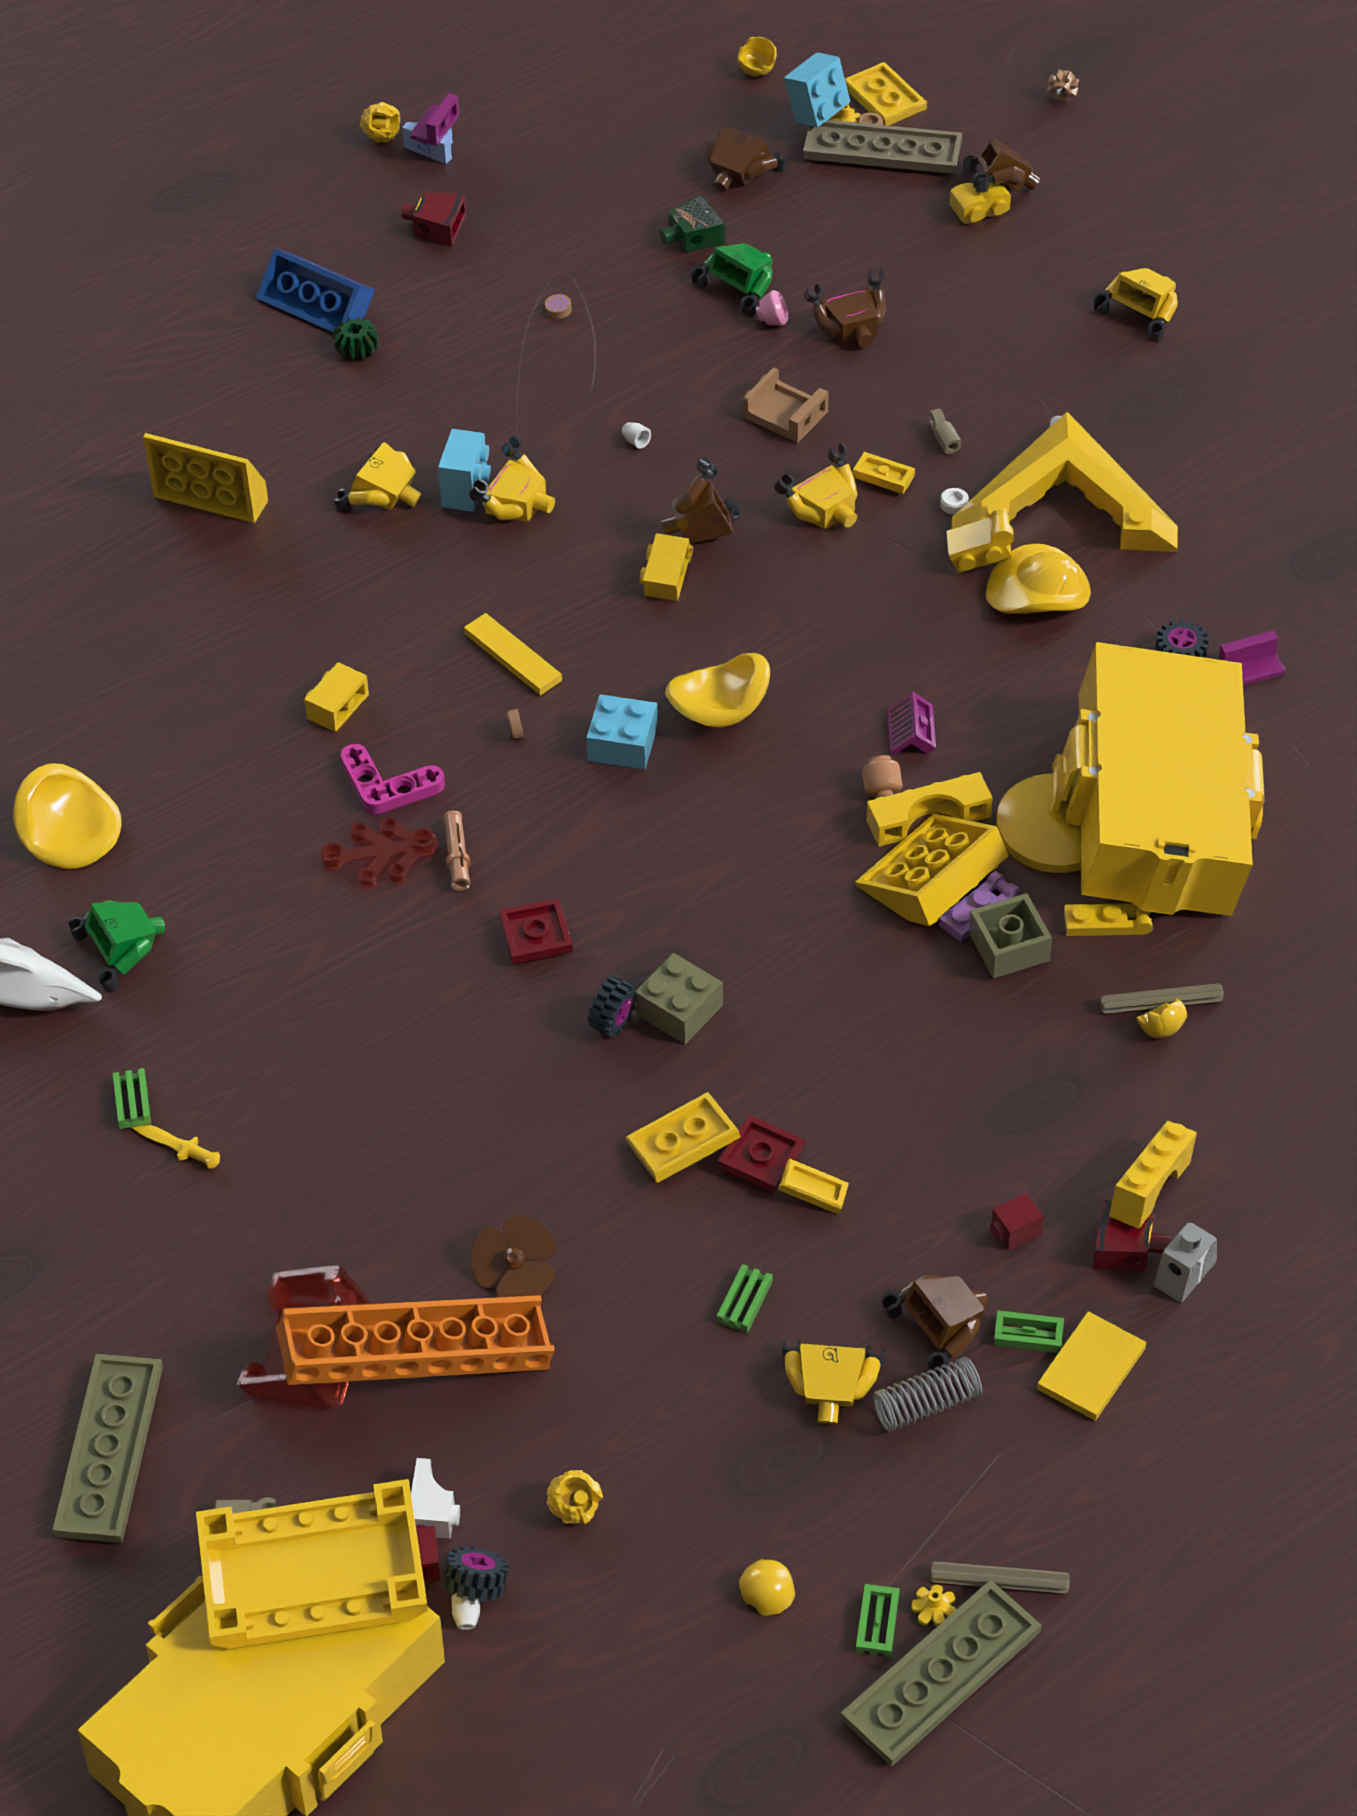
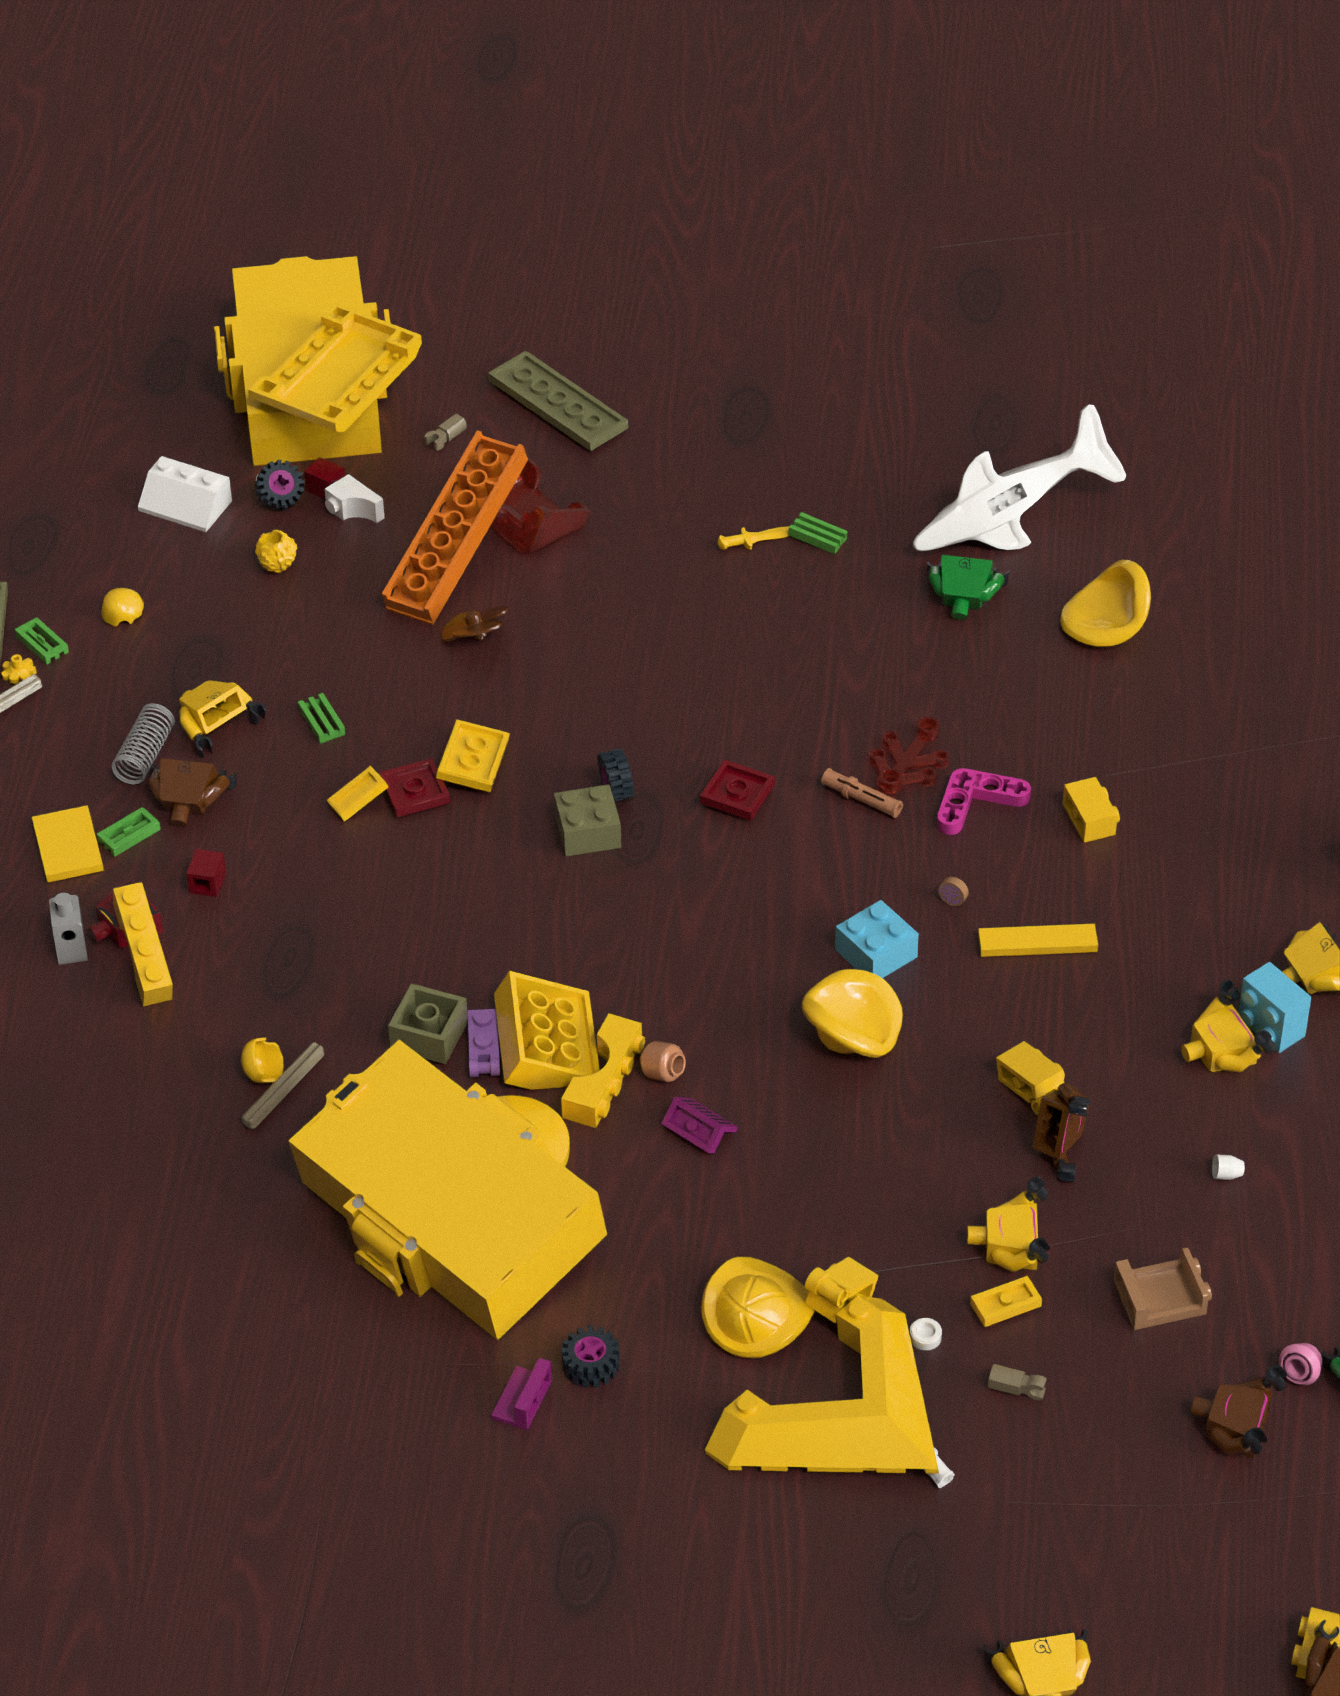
camera: 130 degrees right, 5 degrees down
(561, 1665) = (185, 494): none -> white slope

